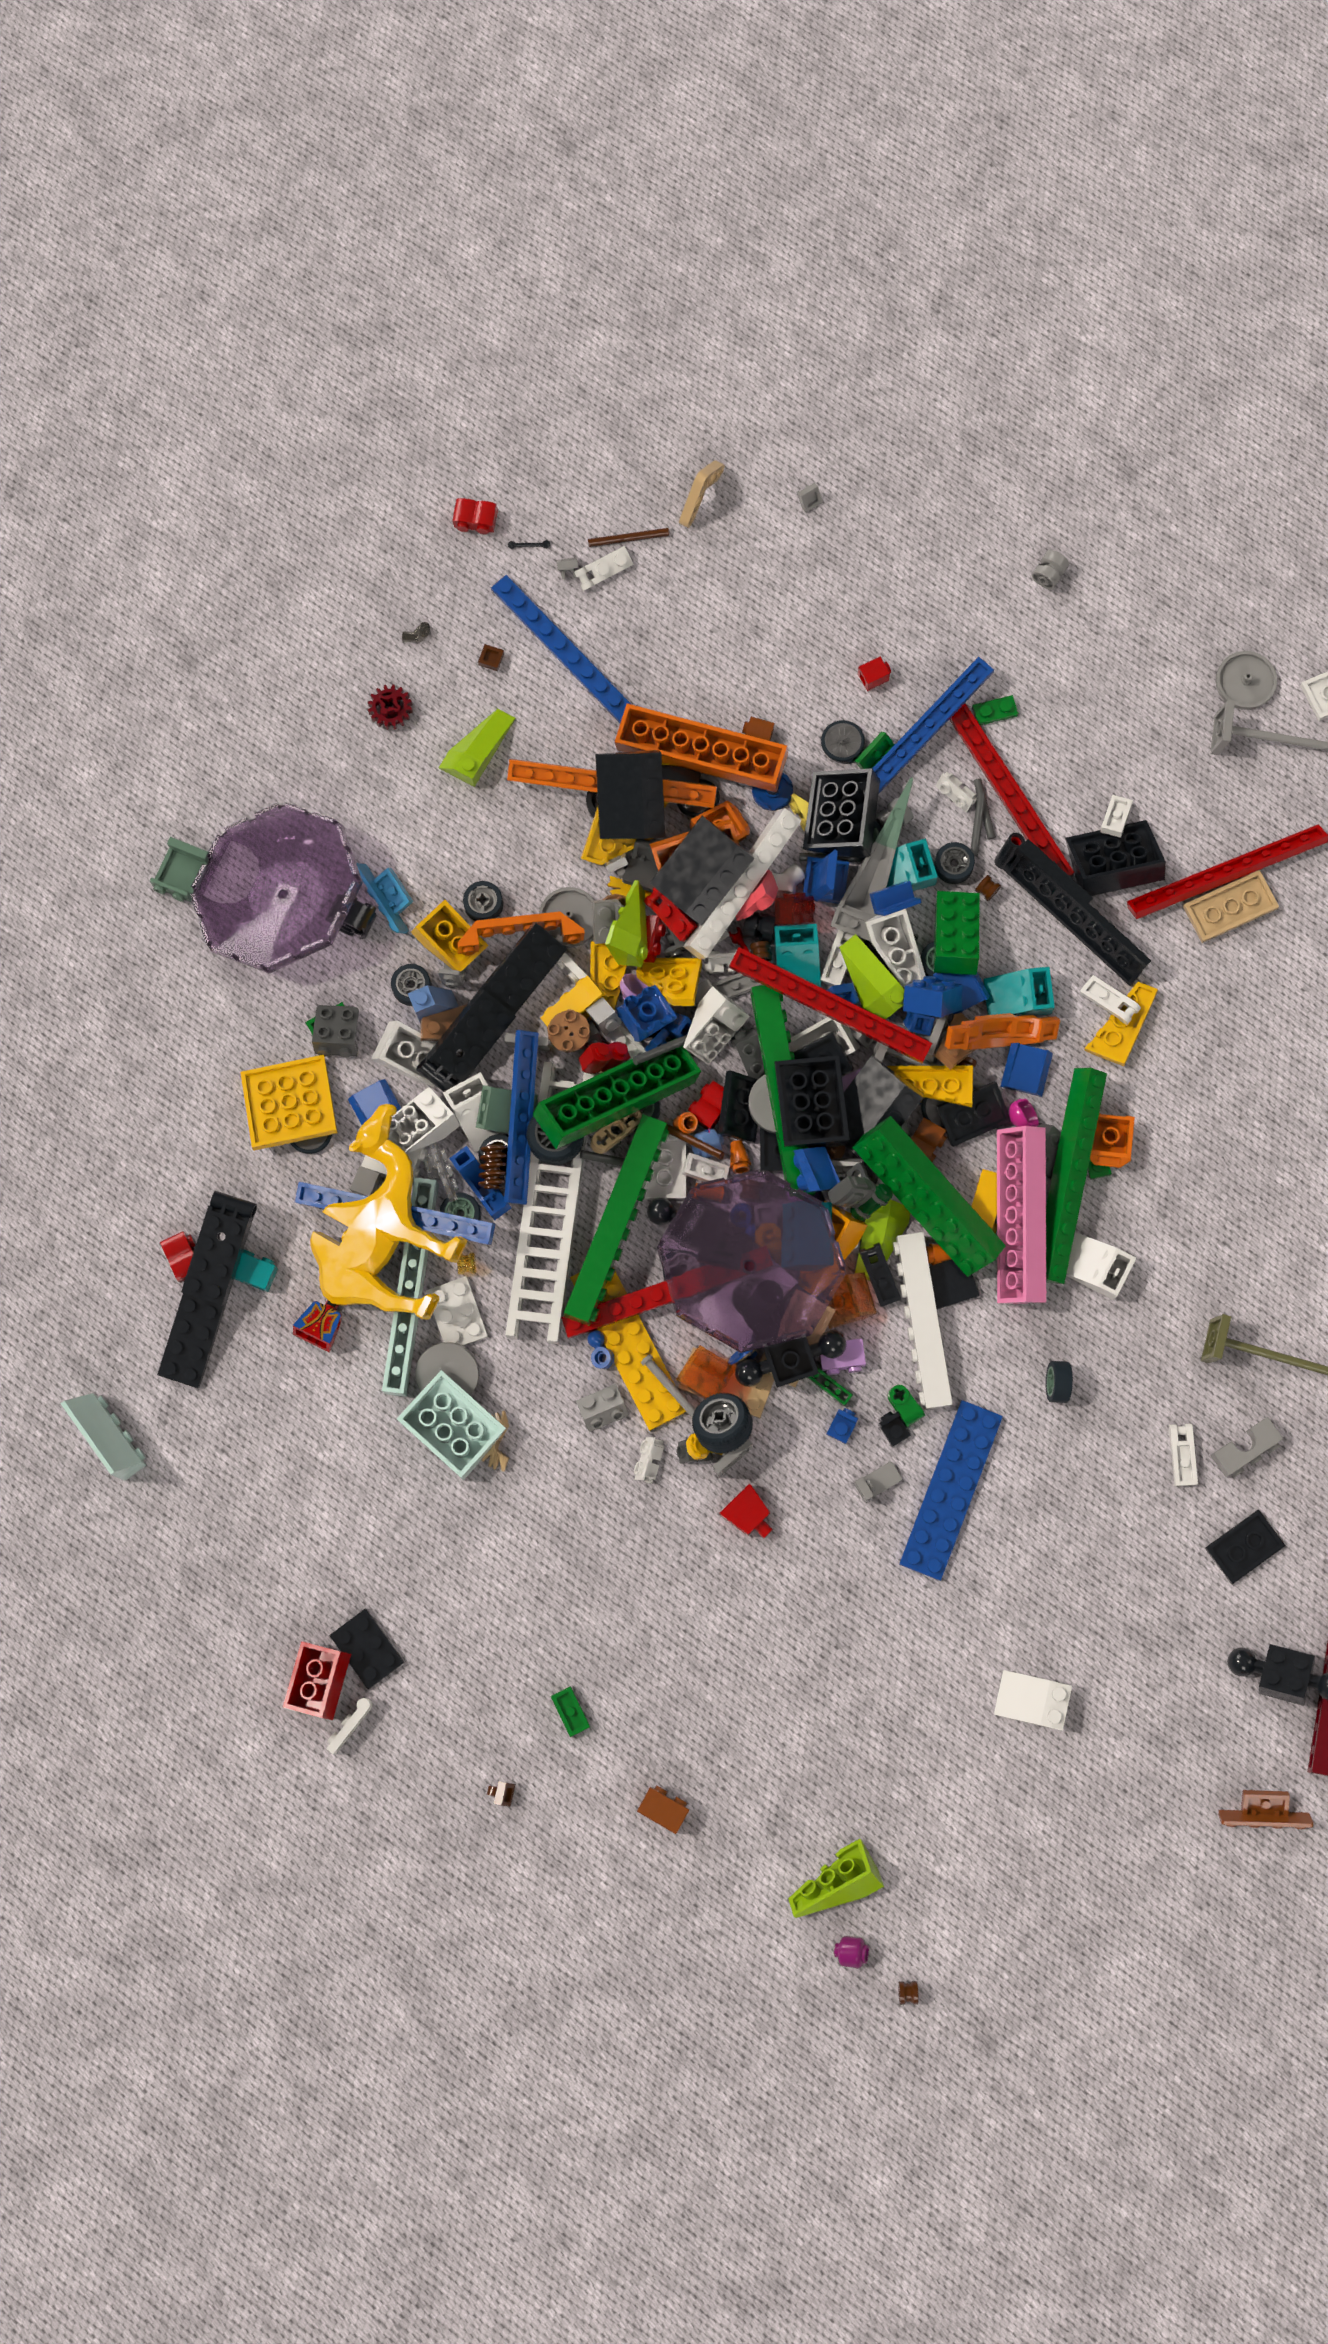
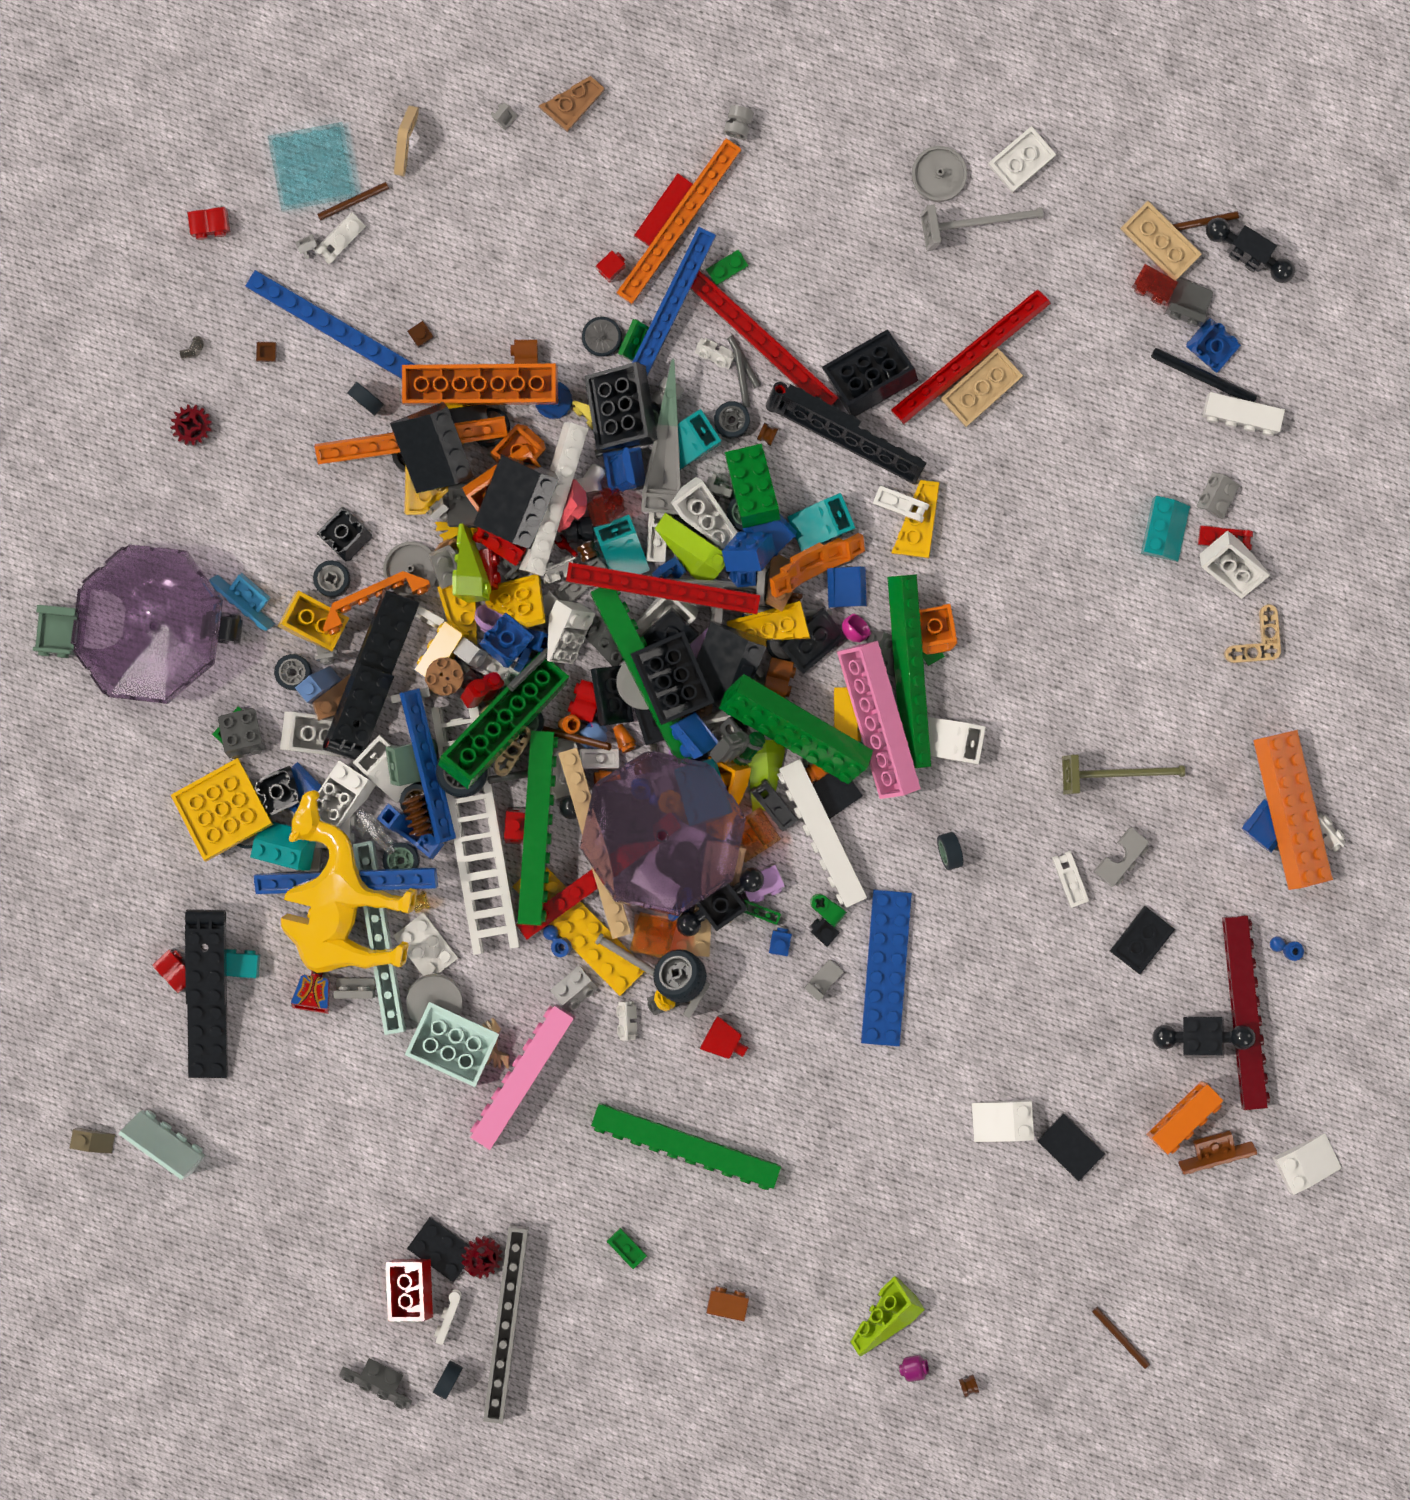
camera: 25 degrees left, 10 degrees up
(31, 1410) = (91, 1141): none -> dark tan slope
(250, 1774) = (378, 1380): none -> dark grey bracket
(325, 1795) = (447, 1380): none -> black wheel
(332, 1157) = (274, 847): none -> teal slope
(354, 1099) = (278, 791): none -> black slope
(366, 1334) = (355, 988): none -> light grey bracket
(410, 1754) = (506, 1324): none -> light grey brick
(418, 1666) = (485, 1248): none -> dark red gear
(474, 752) = (279, 443): lime wedge -> none
(503, 1793) = (591, 1331): reddish brown tile -> none
(511, 861) = (344, 534): none -> black slope
(516, 1483) = (522, 1077): none -> bright pink brick
(546, 544) = (281, 229): black hinge -> none
(577, 730) = (365, 398): none -> black wheel
(591, 1213) = (514, 825): none -> red torso
(597, 492) = (312, 166): none -> clear light blue plate
(655, 685) = (420, 334): none -> reddish brown plate
(672, 1617) = (685, 1145): none -> green brick
(674, 1194) = (581, 798): none -> tan plate
(883, 506) = (573, 103): none -> medium nougat wing
(894, 898) = (689, 473): blue panel -> none
(921, 930) = (721, 490): none -> light grey bracket
(946, 635) = (663, 209): none -> red tile
(958, 650) = (678, 221): none -> orange plate
(1101, 1754) = (1070, 1147): none -> black tile
(1106, 2010) = (1121, 1338): none -> reddish brown bar
(1116, 816) = (860, 334): white plate -> none
(1240, 1759) = (1185, 1117): none -> orange brick

